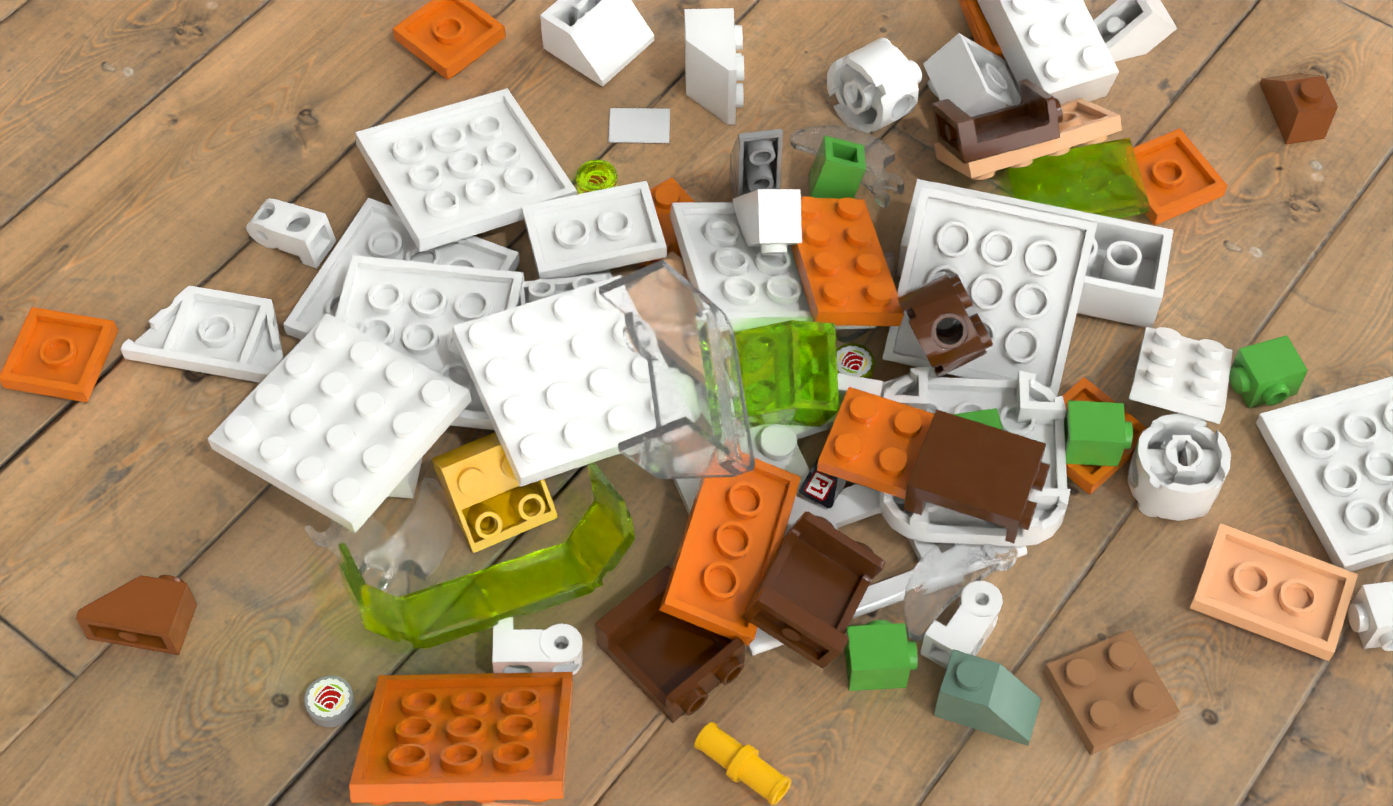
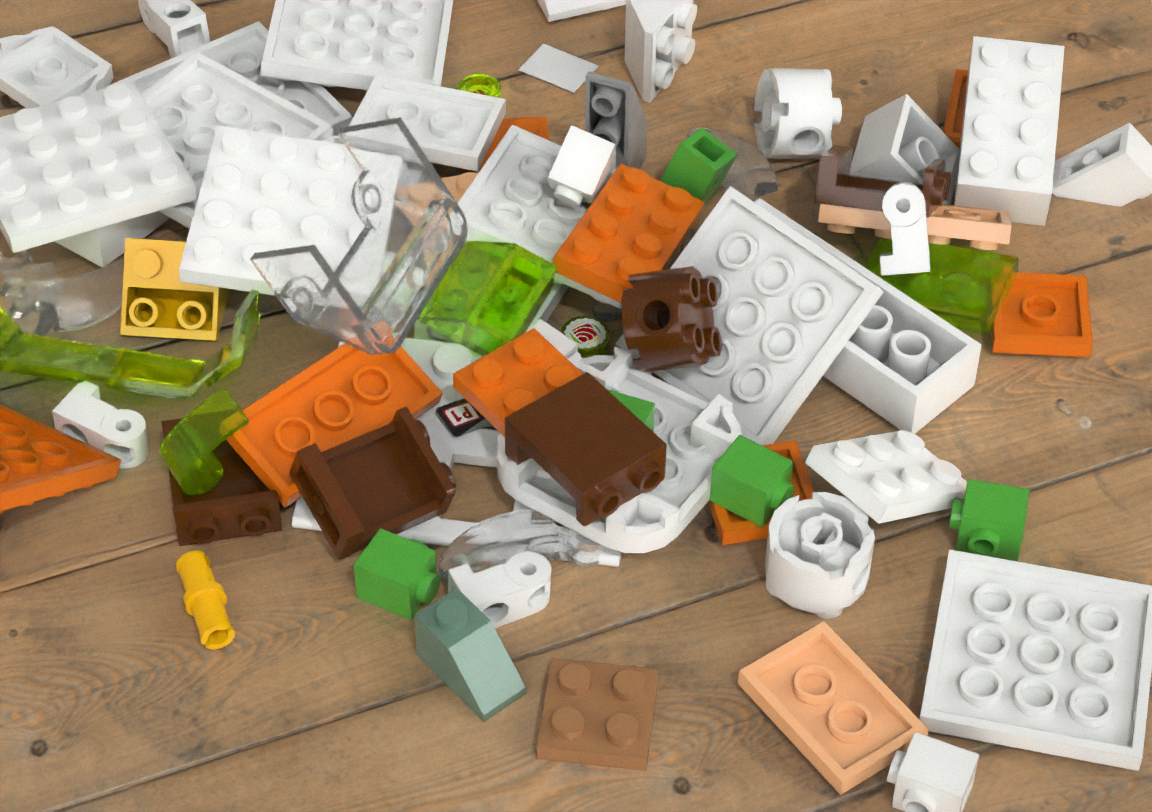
camera: 30 degrees right, 10 degrees down
(649, 622) = (192, 441): none -> clear neon green panel
(1056, 158) = (906, 211): none -> white leg

